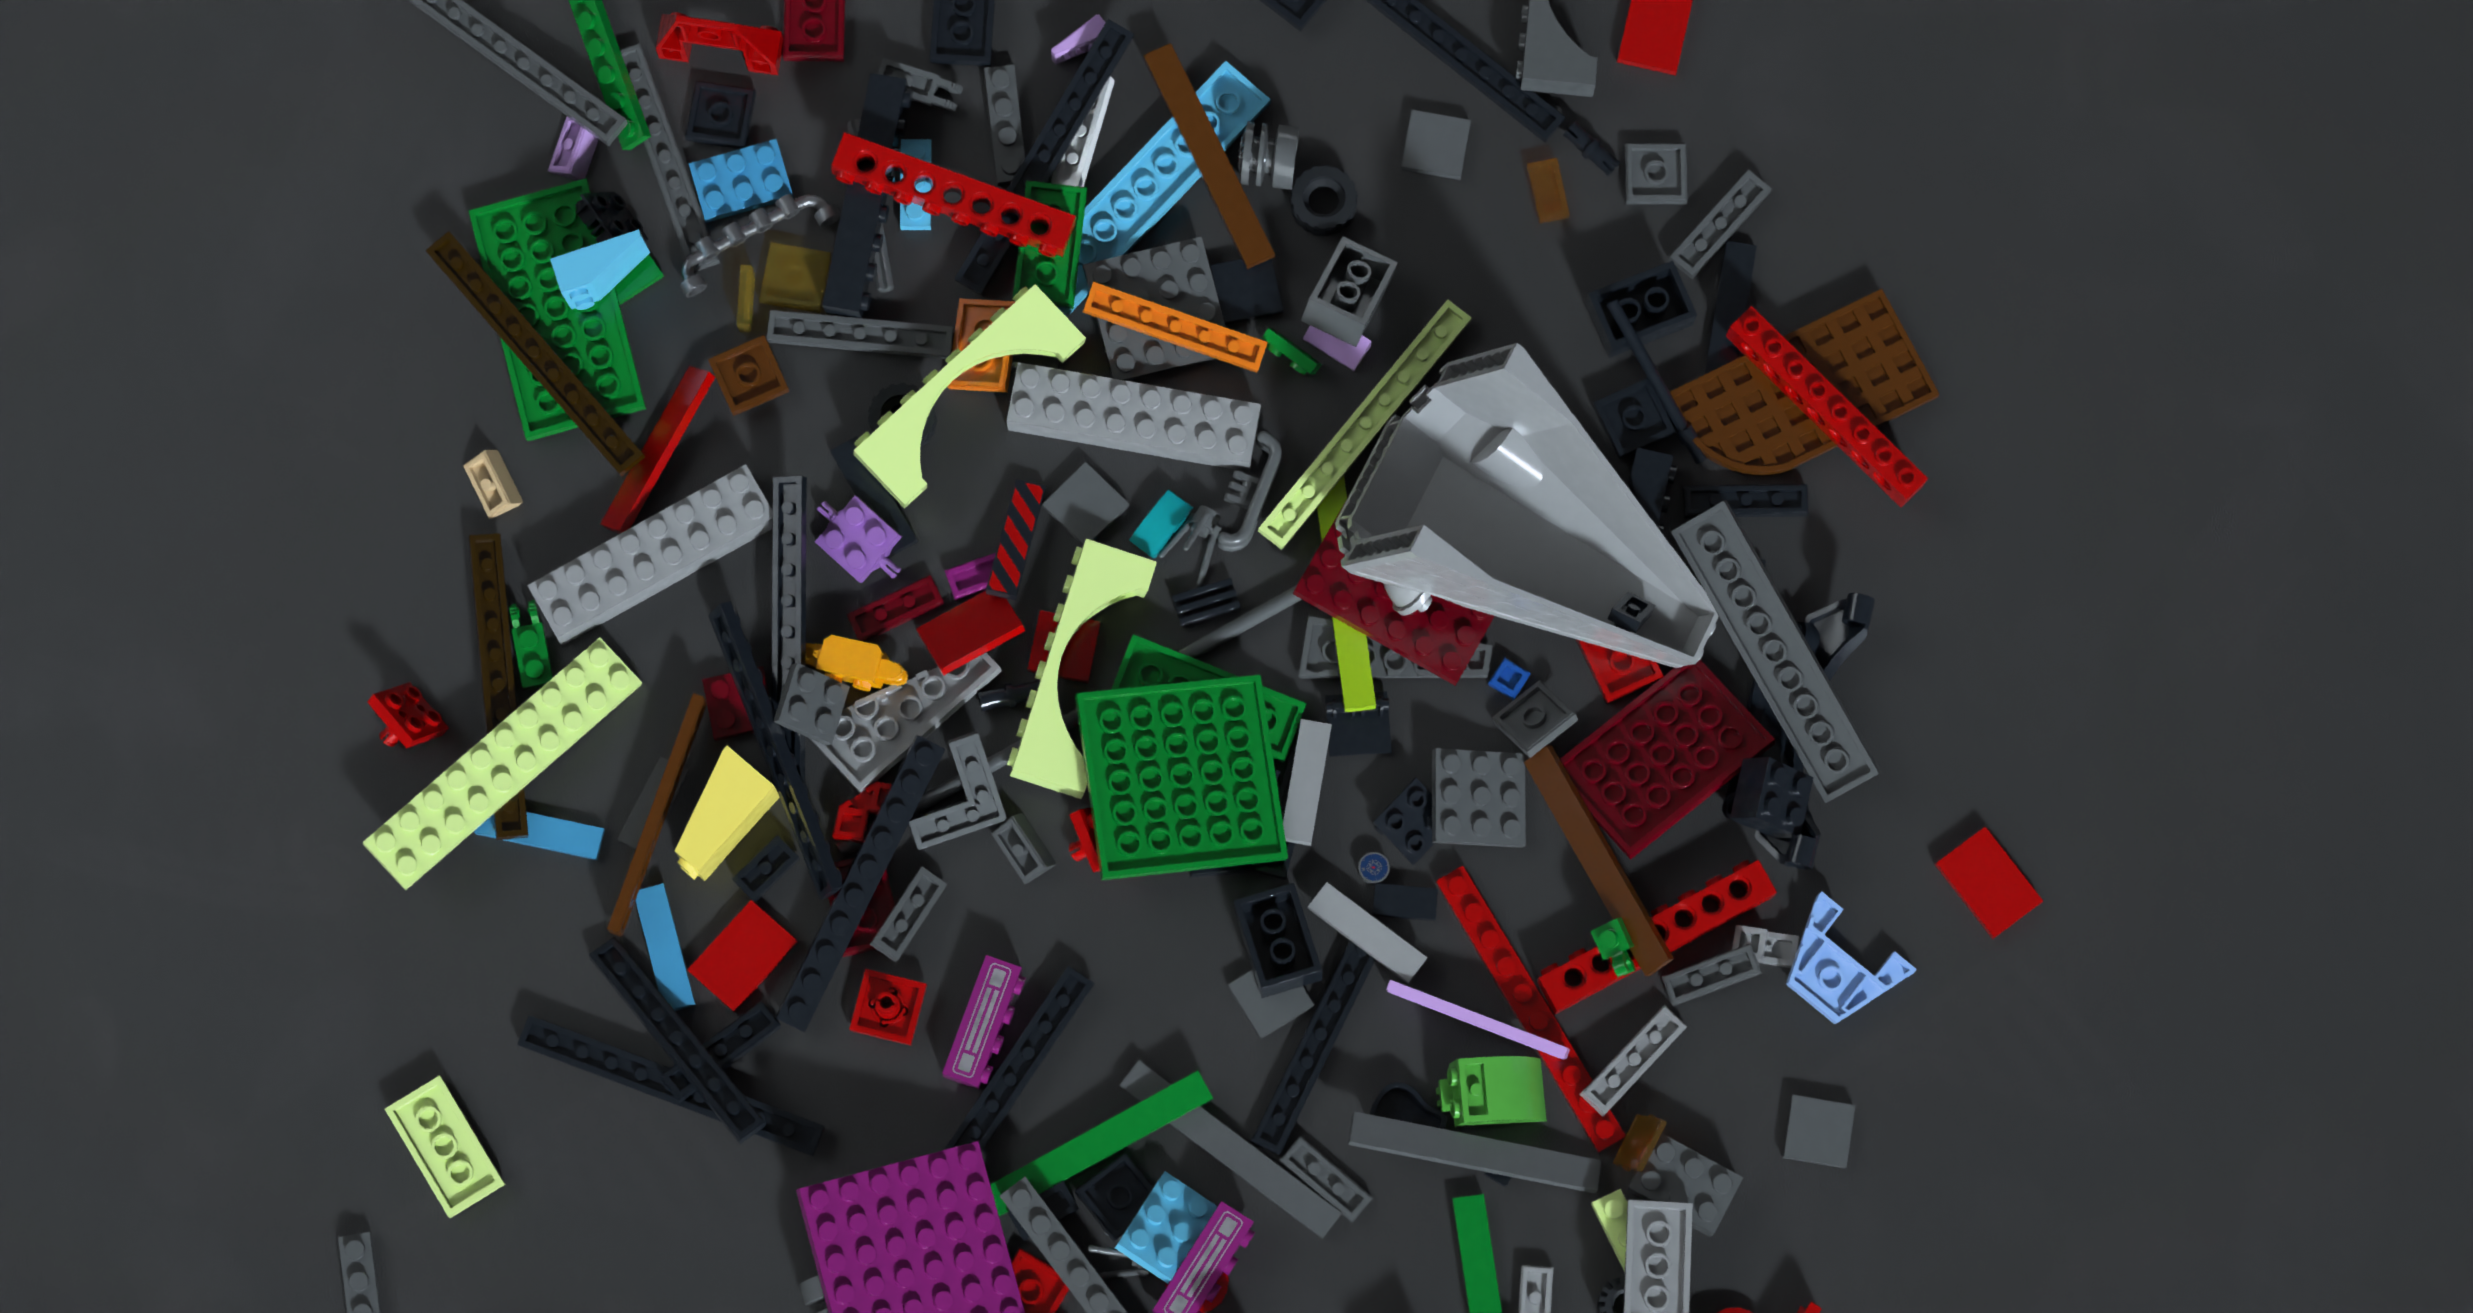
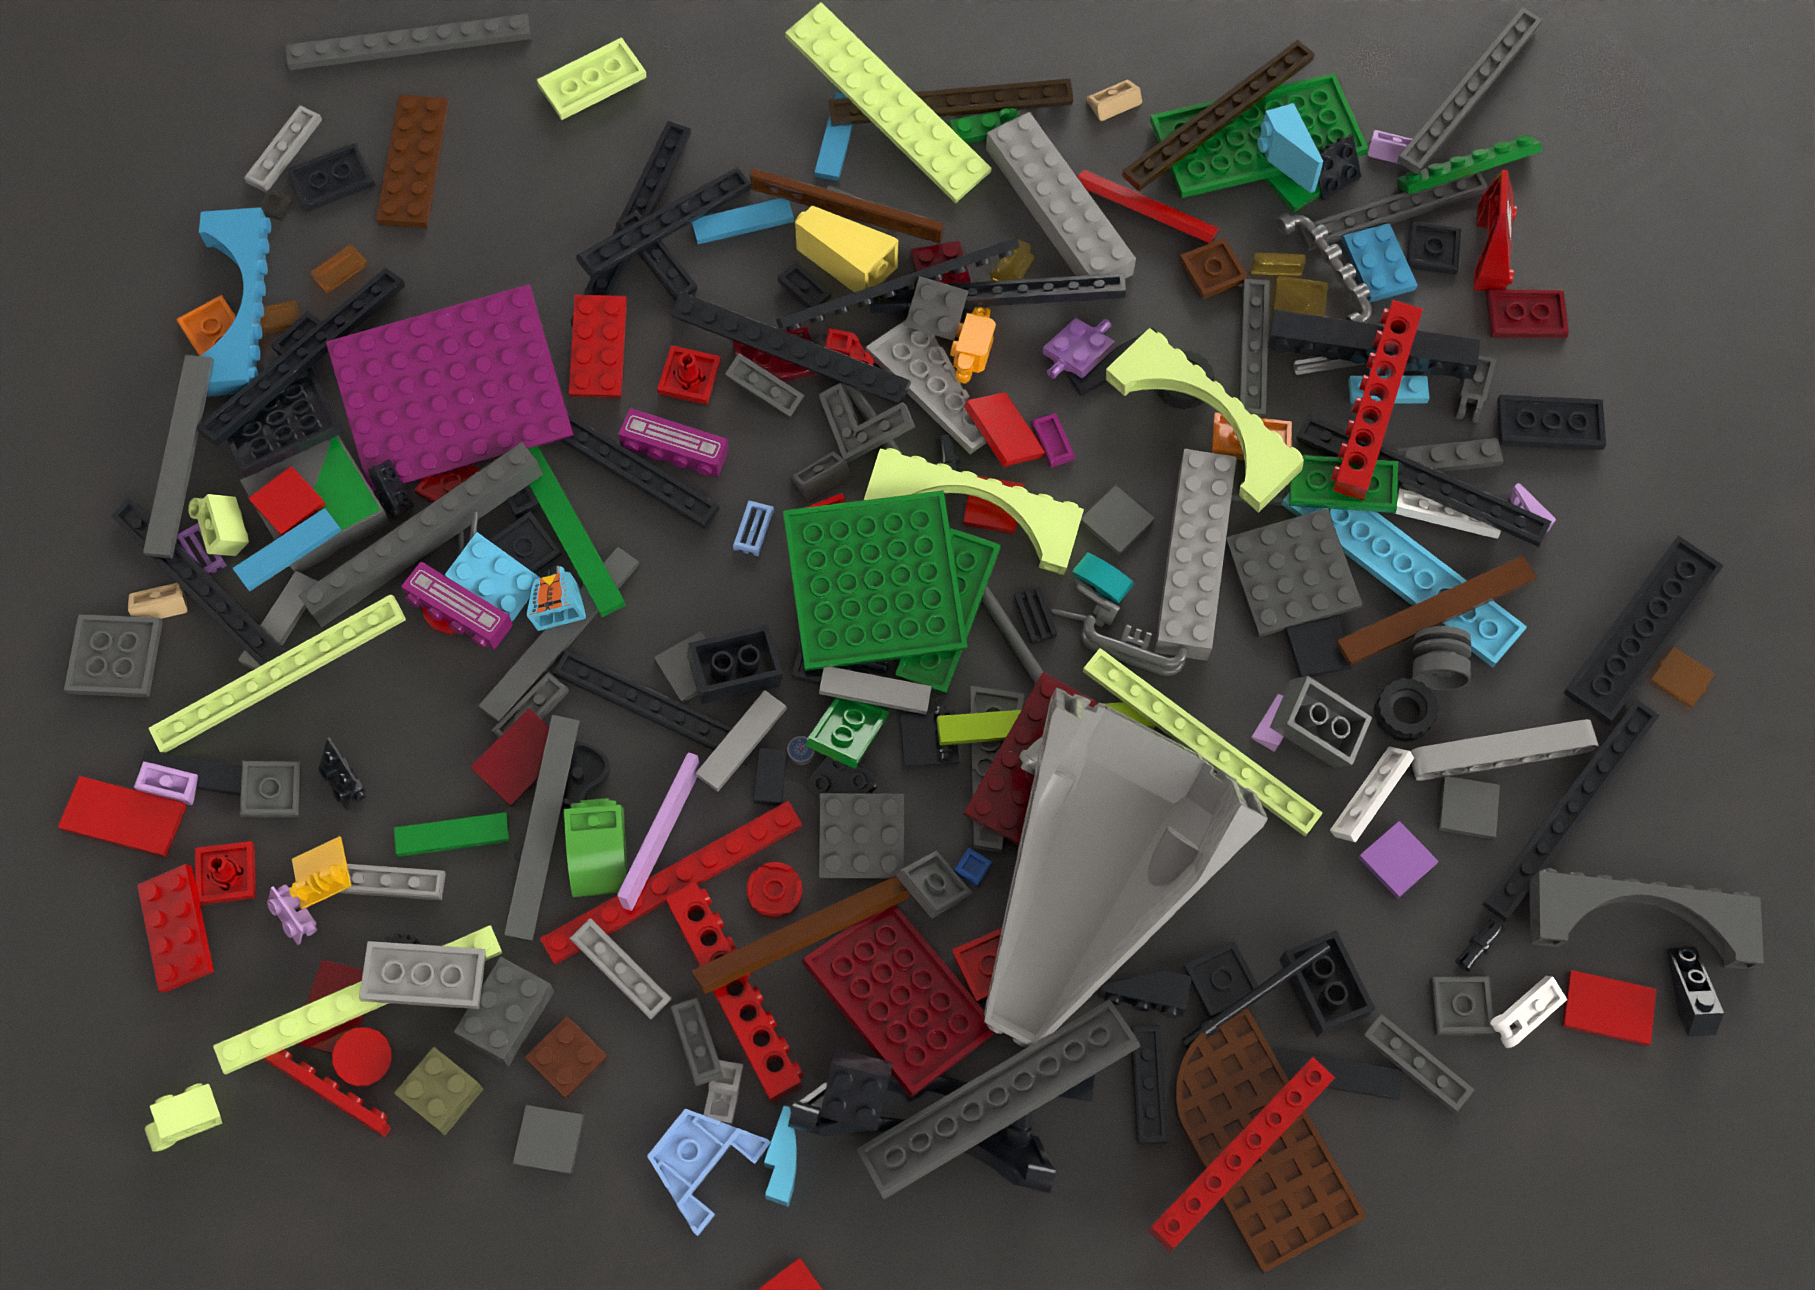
camera: 90 degrees right, 10 degrees down
(407, 716) = (921, 34): red plate -> none
(742, 956) = (734, 274): red tile -> none
(744, 609) = (1016, 267): none -> clear yellow piece
(849, 1119) = (598, 346): none -> red plate
(895, 609) = (1022, 378): dark red tile -> none
(1015, 539) = (1083, 463): tile -> none
(1090, 926) = (738, 545): none -> light blue tile
(1175, 327) = (1276, 579): orange plate -> none
(1193, 1151) = (555, 600): none -> medium azure torso
(1281, 345) = (1264, 681): green plate -> none
(1358, 812) = (847, 730): none -> green tile
(1371, 102) = (1503, 749): none -> light grey beam
(1387, 1189) = (514, 758): none -> dark red tile
(1424, 245) = (1372, 794): none -> white plate
(1496, 224) = (1398, 859): none -> medium lavender tile
(1537, 896) = (774, 890): none -> red tile
(1548, 190) = (1435, 907): clear orange tile -> none
(1614, 942) = (722, 944): green plate -> none
(1631, 612) = (1030, 960): black plate -> none
(1639, 1142) = (543, 970): clear orange piece -> none
(1664, 106) = (1529, 1011): none -> white plate
(1729, 1117) = (566, 1057): none -> copper plate
(1773, 1250) = (439, 1091): none -> olive brick
(1837, 880) = (783, 1160): none -> medium azure slope

